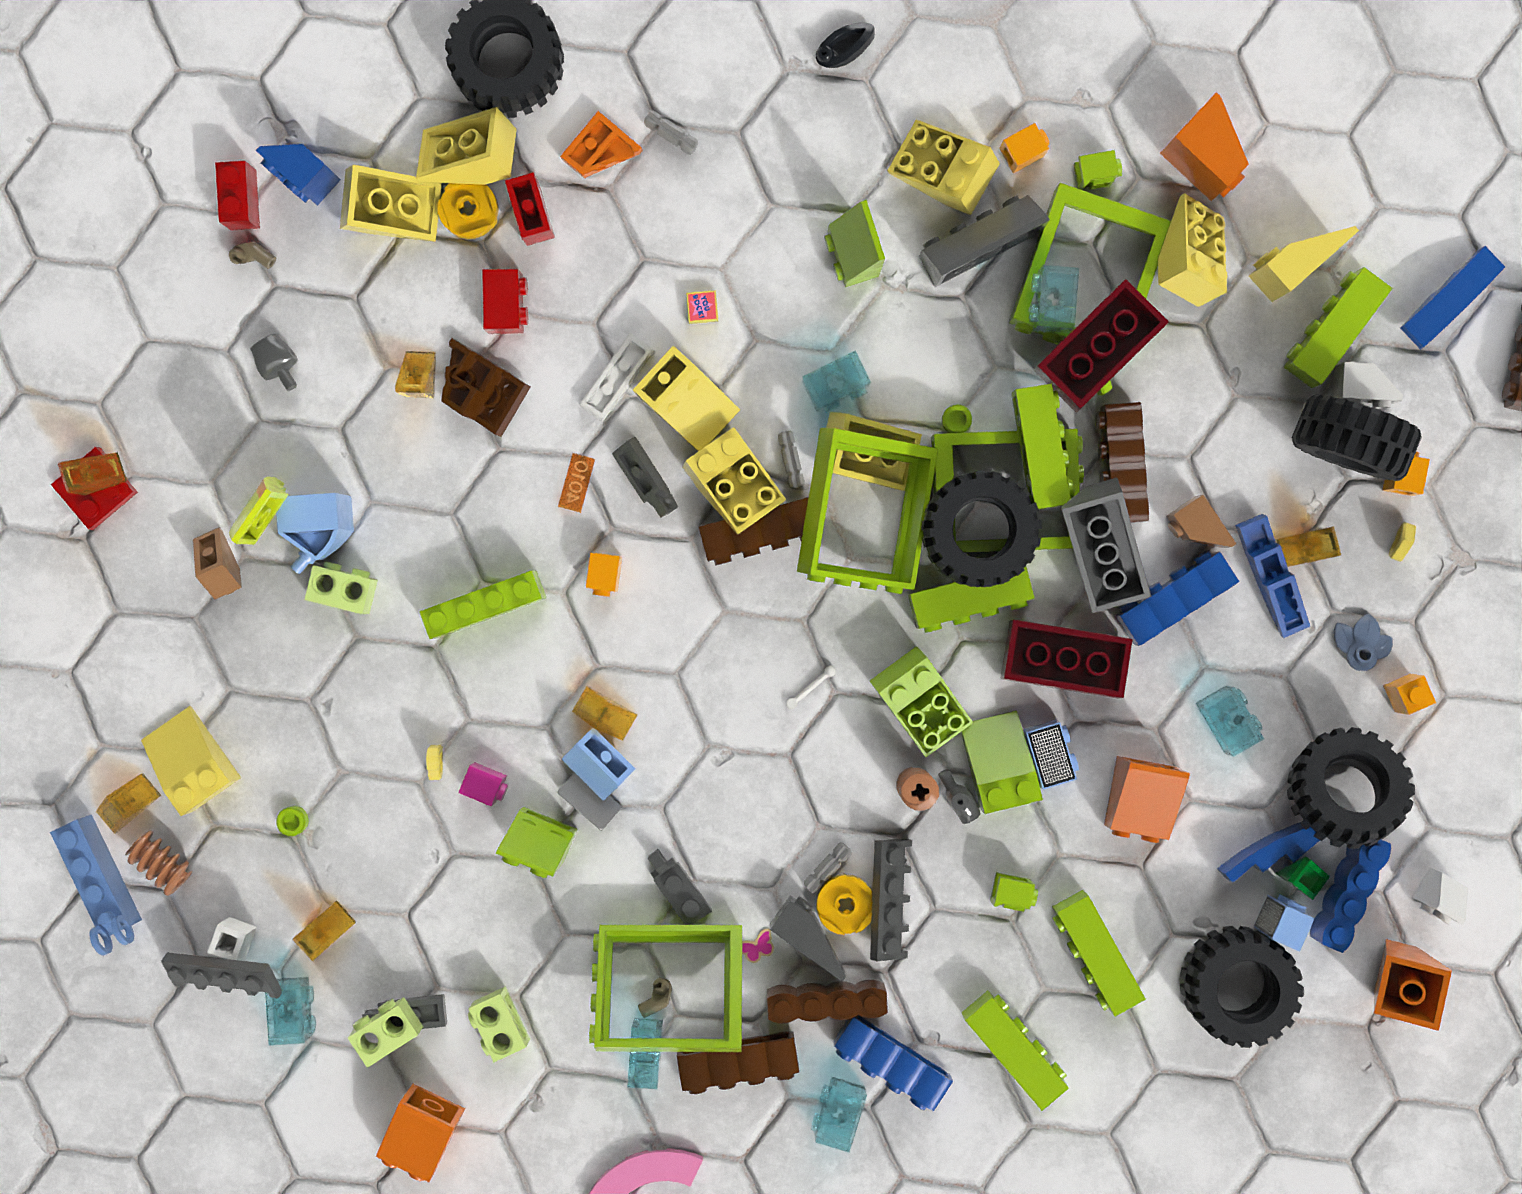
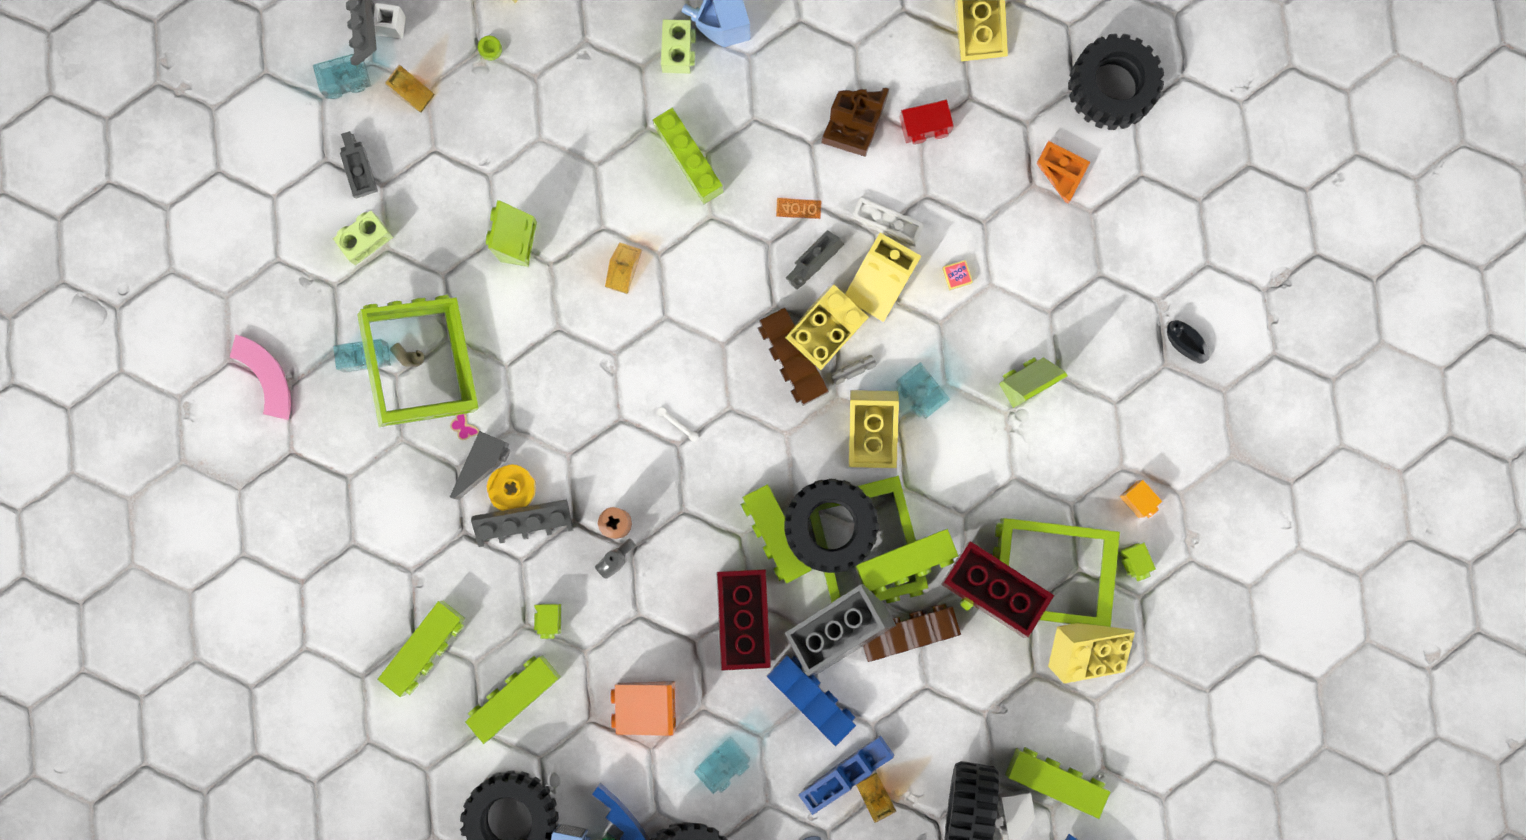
camera: 75 degrees right, 5 degrees down
(388, 1035) = (337, 153): yellowish green brick -> none
(417, 375) = (854, 68): clear yellow slope -> none
(419, 1133) = (266, 194): orange slope -> none
(434, 762) = (557, 145): light yellow tile -> none
(462, 225) = (994, 67): yellow plate -> none
(468, 150) = (1036, 70): light yellow slope -> none
(483, 784) = (548, 186): dark pink brick -> none
(529, 209) = (1002, 125): red brick -> none
(588, 803) = (553, 270): light grey slope -> none
(598, 764) = (582, 270): light blue brick -> none
(603, 573) = (732, 243): light orange brick -> none
(671, 132) = (1087, 222): light grey axle -> none
(678, 889) = (497, 354): dark grey hinge -> none
(760, 1059) = (371, 441): reddish brown brick -> none
(827, 867) = (537, 468): light grey axle -> none
(836, 1000) = (432, 495): reddish brown brick -> none
(839, 1131) = (329, 518): clear light blue brick -> none
(893, 1061) = (393, 552): blue brick -> none
(916, 497) = (851, 472): lime window -> none
(921, 701) = (684, 513): lime slope -> none
(945, 166) = (1111, 440): light yellow slope -> none
(956, 419) = (915, 493): lime tile -> none
(983, 239) = (1060, 481): dark grey slope -> none
(1001, 763) = (649, 586): lime slope -> none
(1051, 754) = (664, 624): brick -> none
(1064, 285) = (1040, 548): clear light blue brick -> none
(1199, 523) = (874, 705): medium nougat slope -> none
(1209, 151) = (1173, 644): orange slope -> none
(1286, 268) = (1095, 728): light yellow slope -> none

